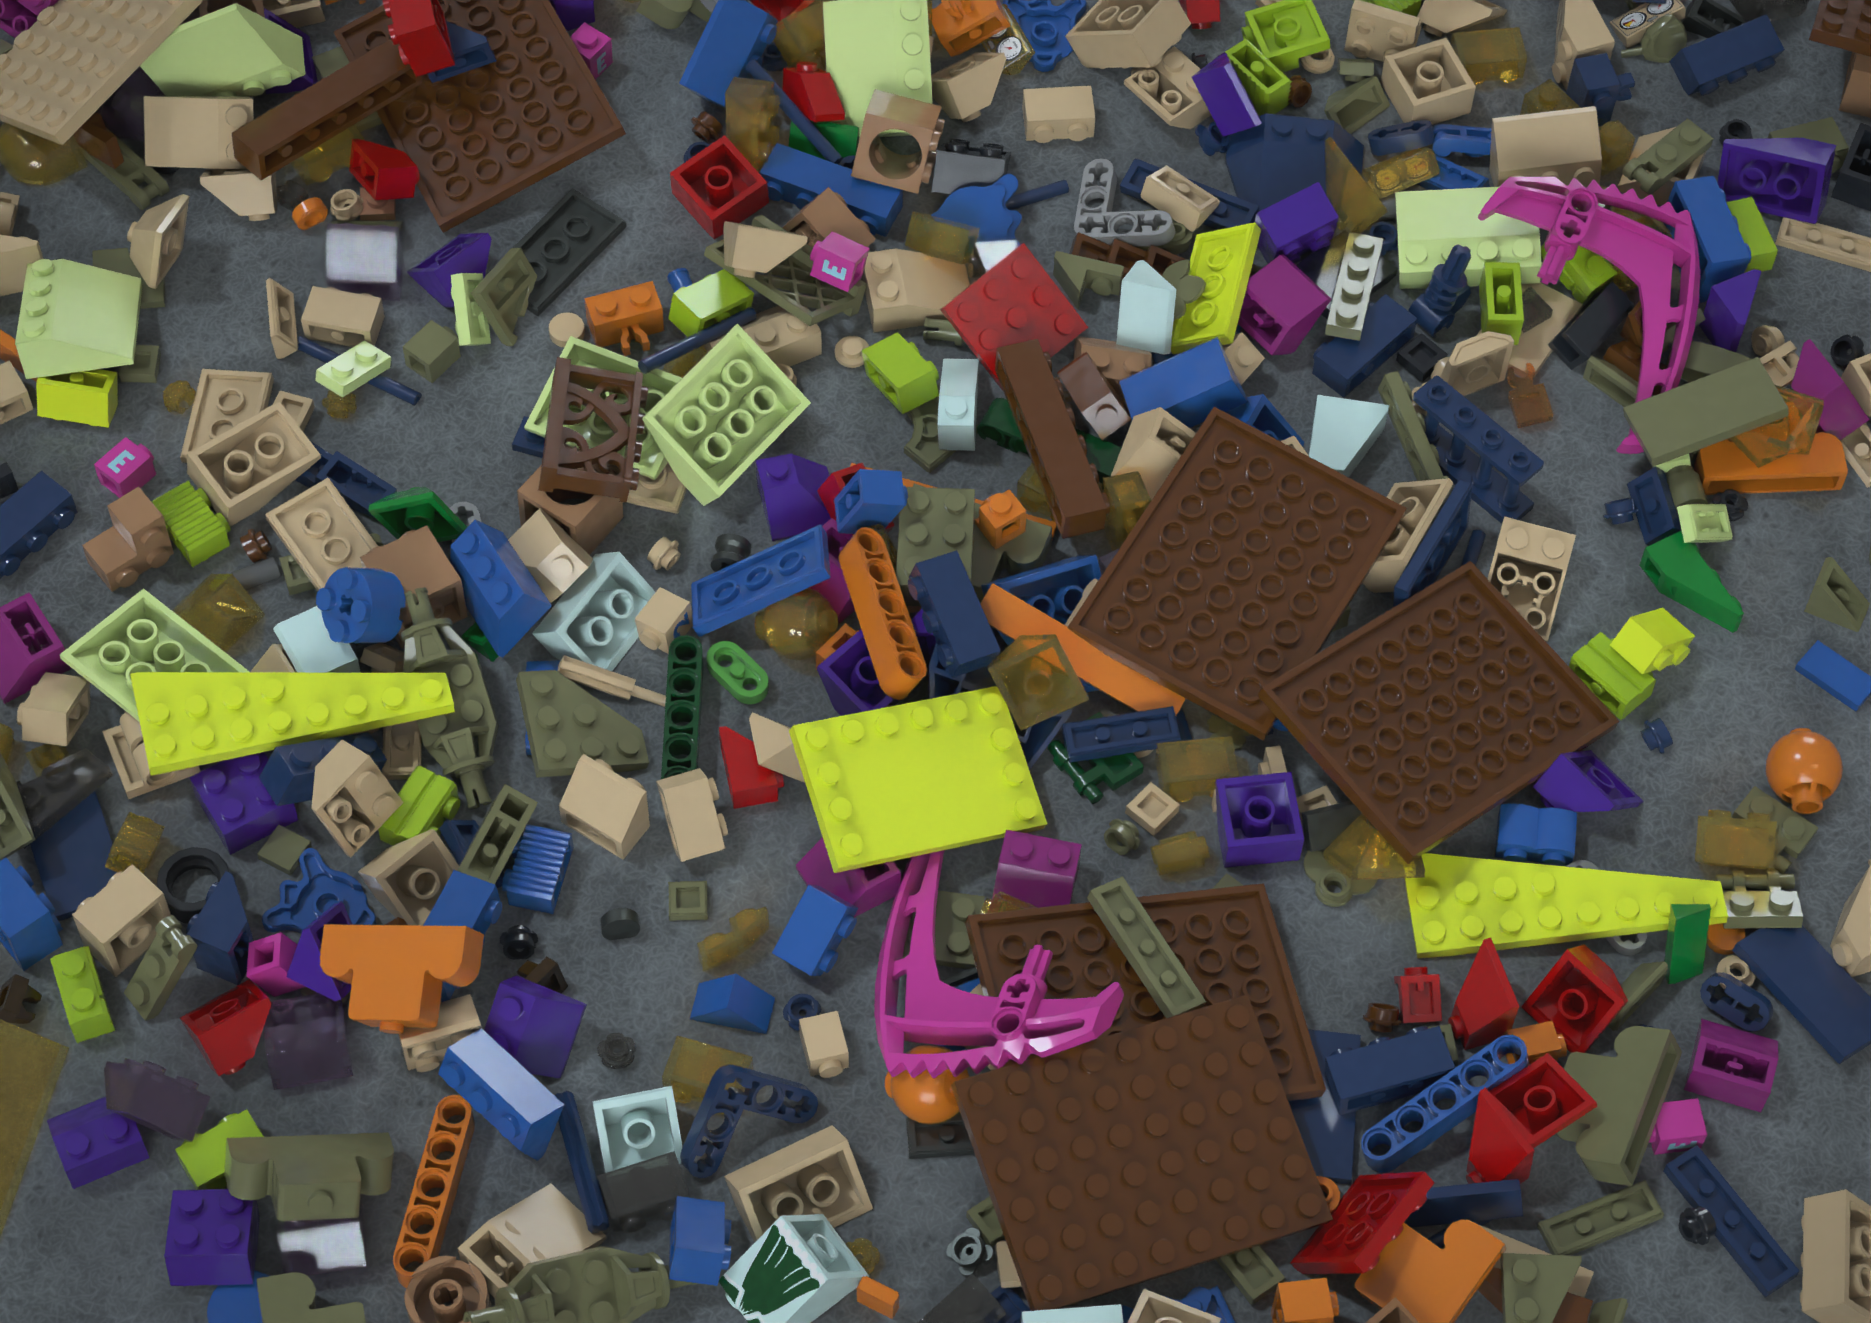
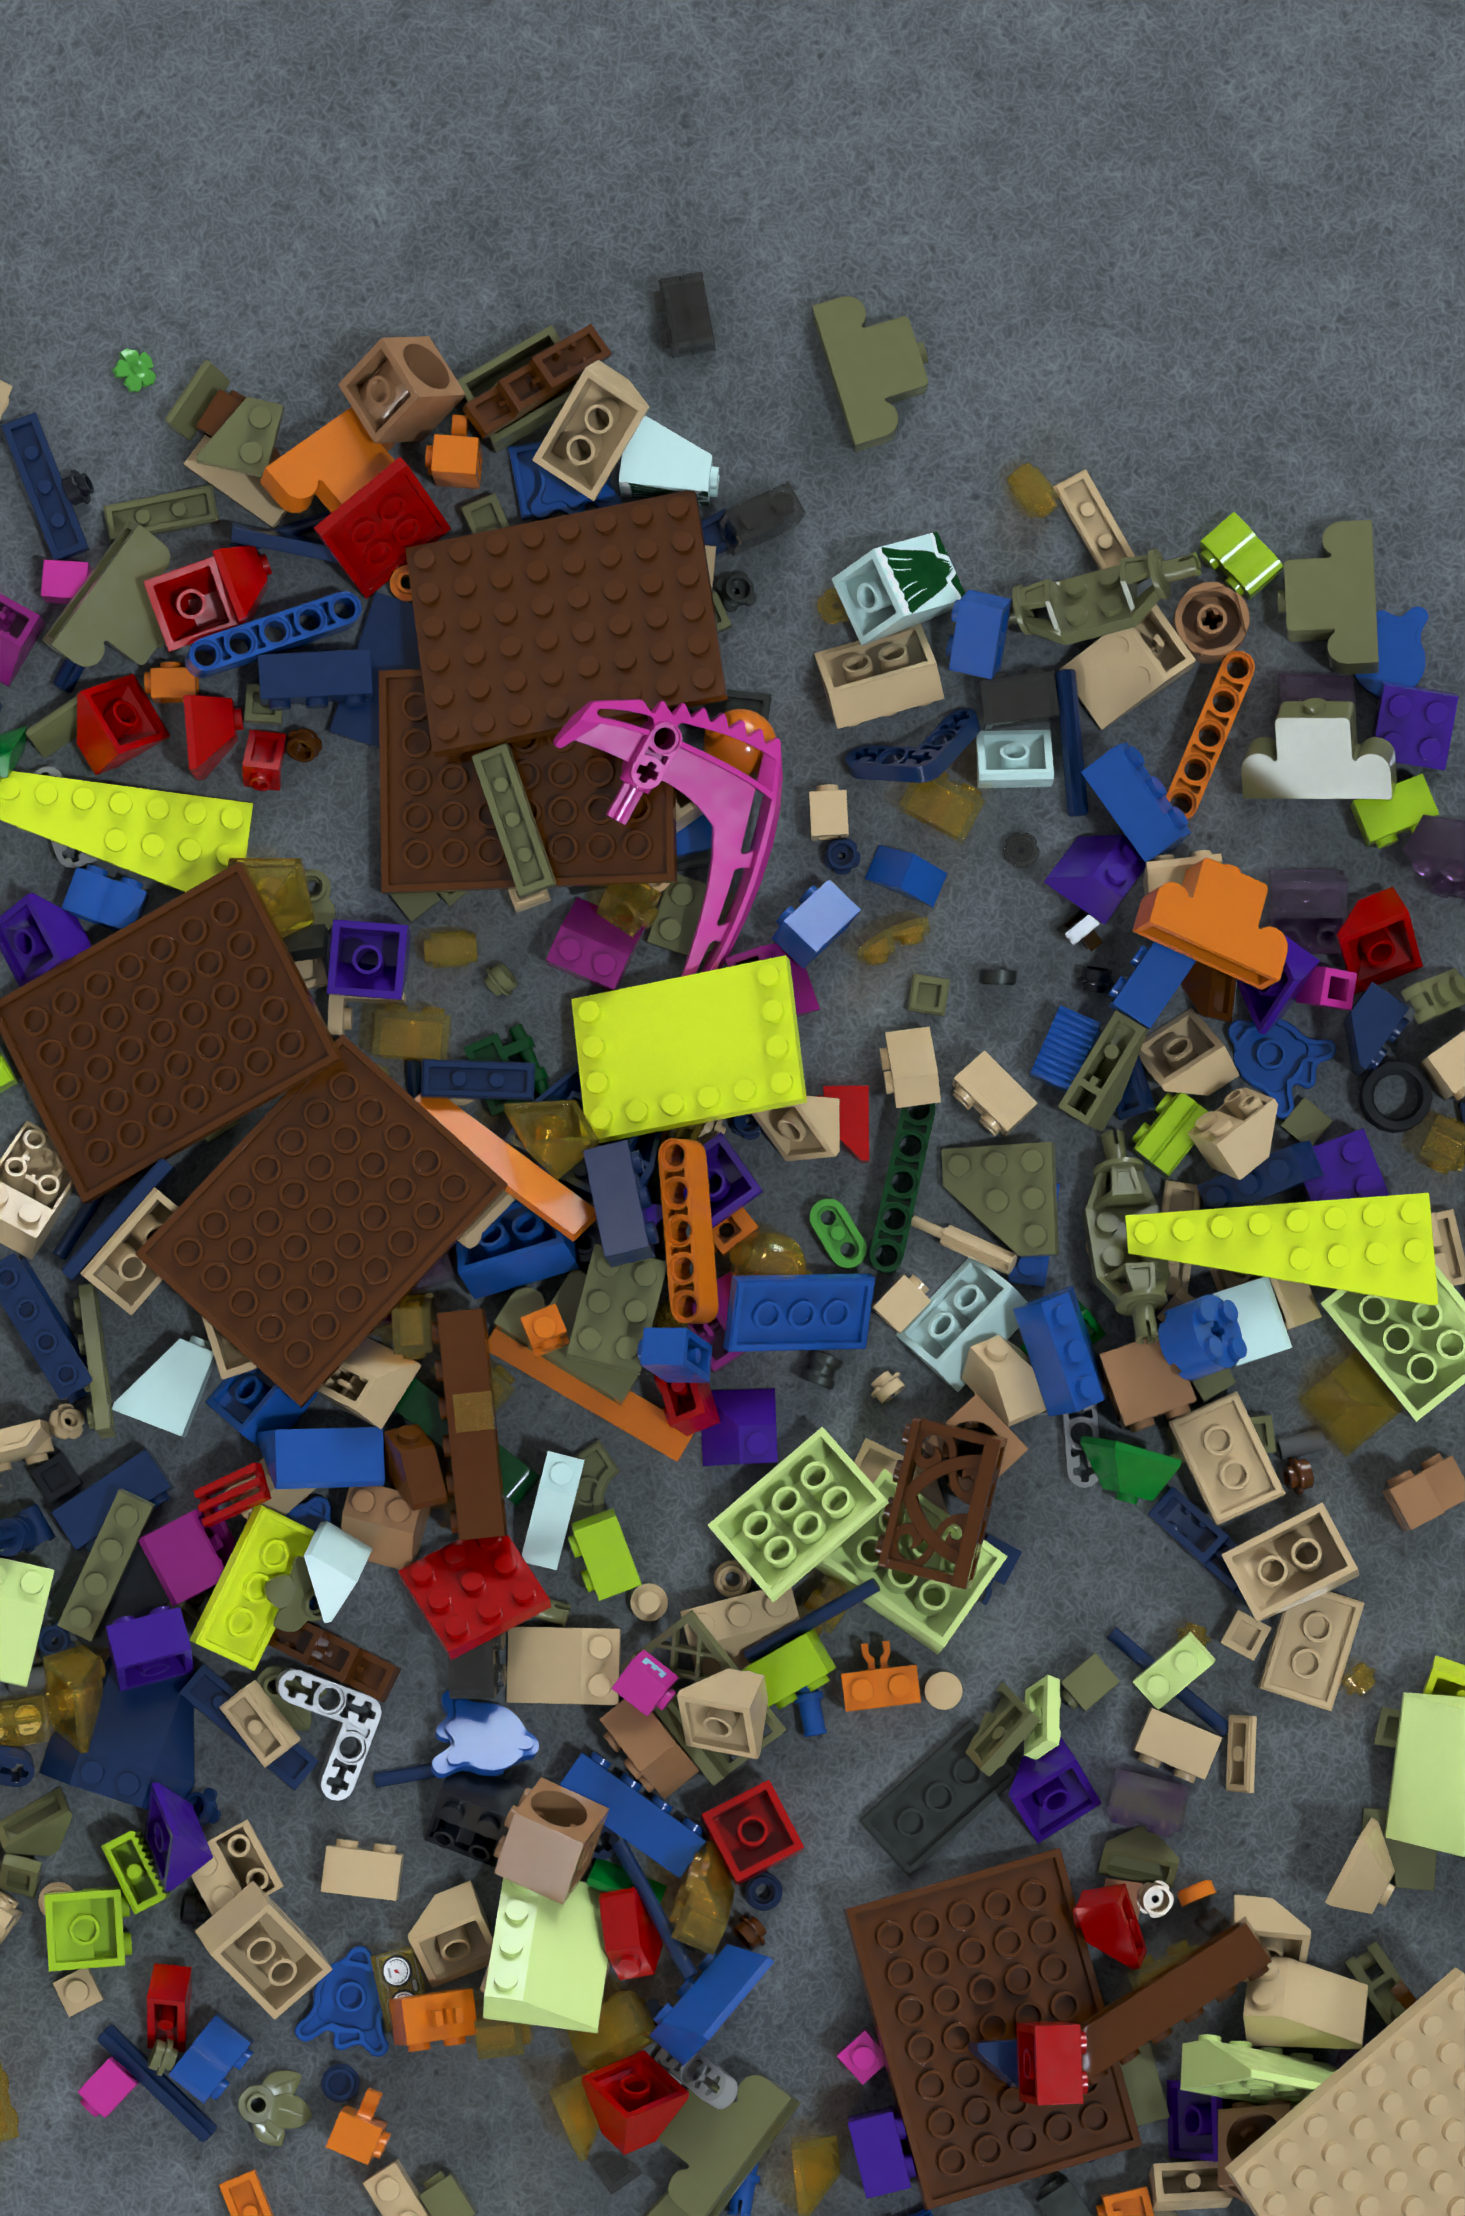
camera: 160 degrees left, 25 degrees up
(125, 467) = (1421, 1594): dark pink brick -> none
(192, 523) = (1361, 1514): lime brick -> none
(878, 1297) = (826, 559): orange tile -> none
(941, 237) = (527, 1716): clear yellow slope -> none
(1050, 427) = (473, 1411): none -> clear yellow plate
(1078, 272) = (393, 1650): olive slope -> none
(1152, 809) = (465, 1003): tan plate -> none
(1267, 327) = (227, 1481): none -> red tile
(1300, 91) = (92, 1857): reddish brown plate -> none

